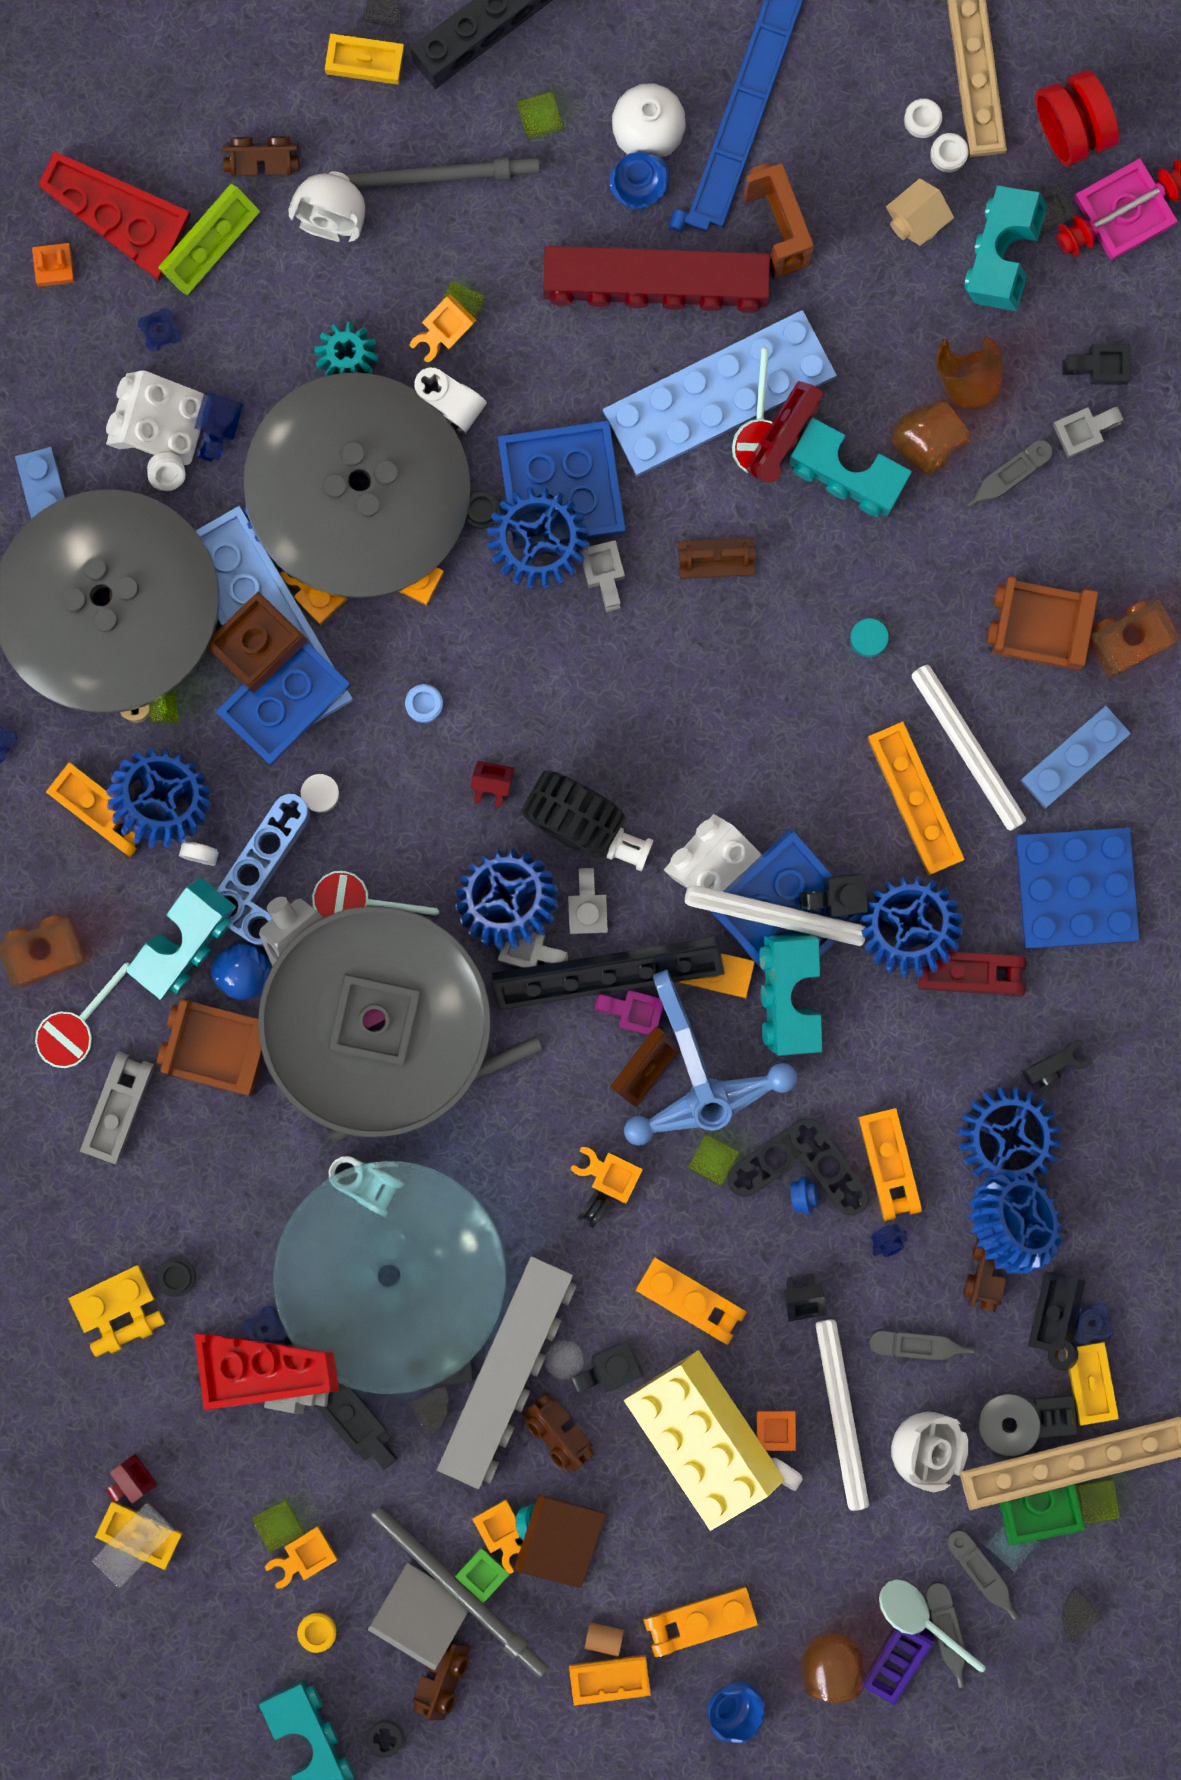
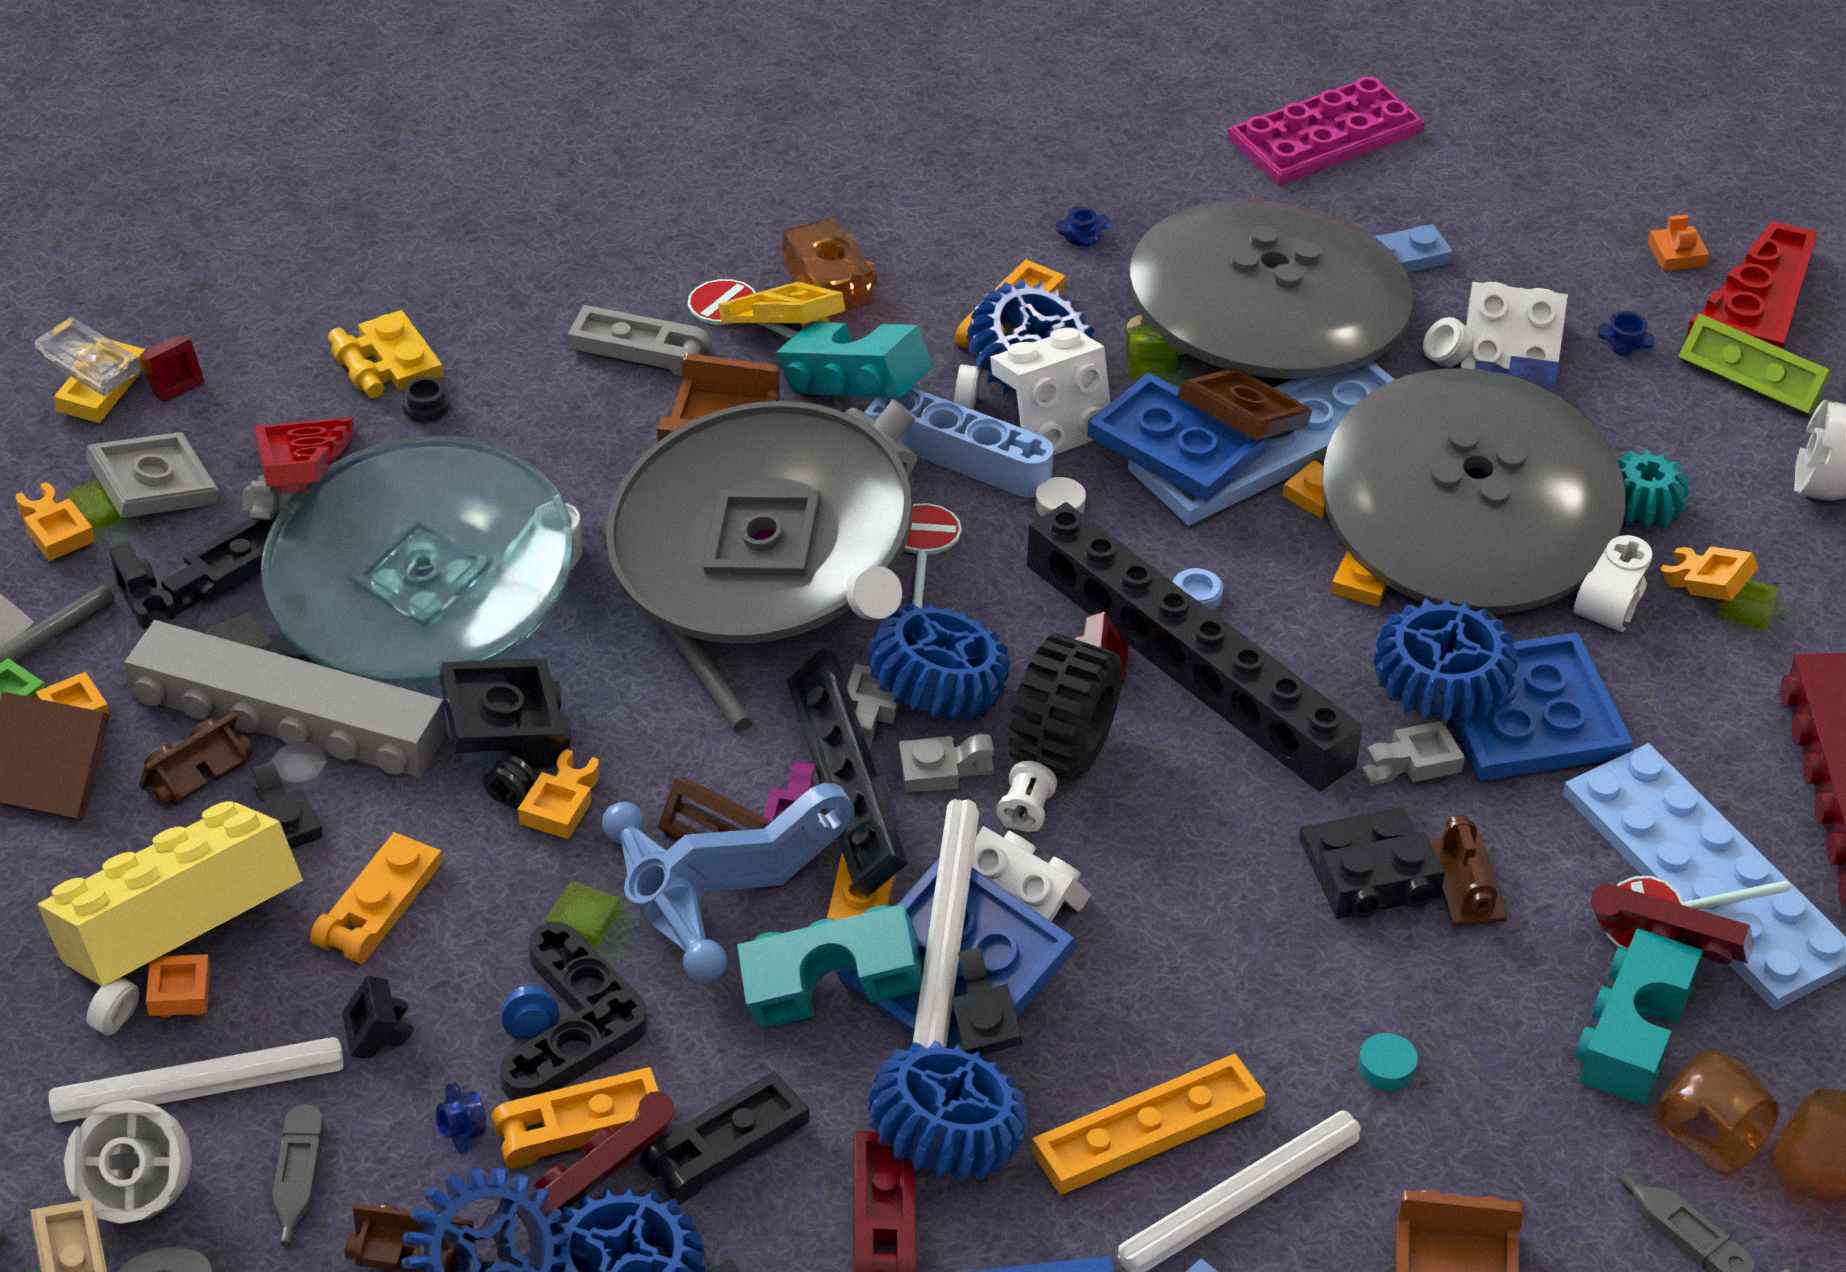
camera: 85 degrees right, 40 degrees down
(96, 989) = (784, 304): none -> yellow wing
(222, 785) = (1057, 385): none -> white bracket
(254, 1486) = (152, 474): none -> light grey tile
(374, 1489) = (139, 585): none -> black plate
(469, 941) = (874, 592): none -> white tile
(493, 717) = (1195, 647): none -> black brick
(535, 1213) = (505, 708): none -> black plate
(699, 619) = (1372, 863): none -> black plate
(910, 1069) = (725, 1136): none -> black plate
(938, 1148) = (607, 1153): none -> dark red plate

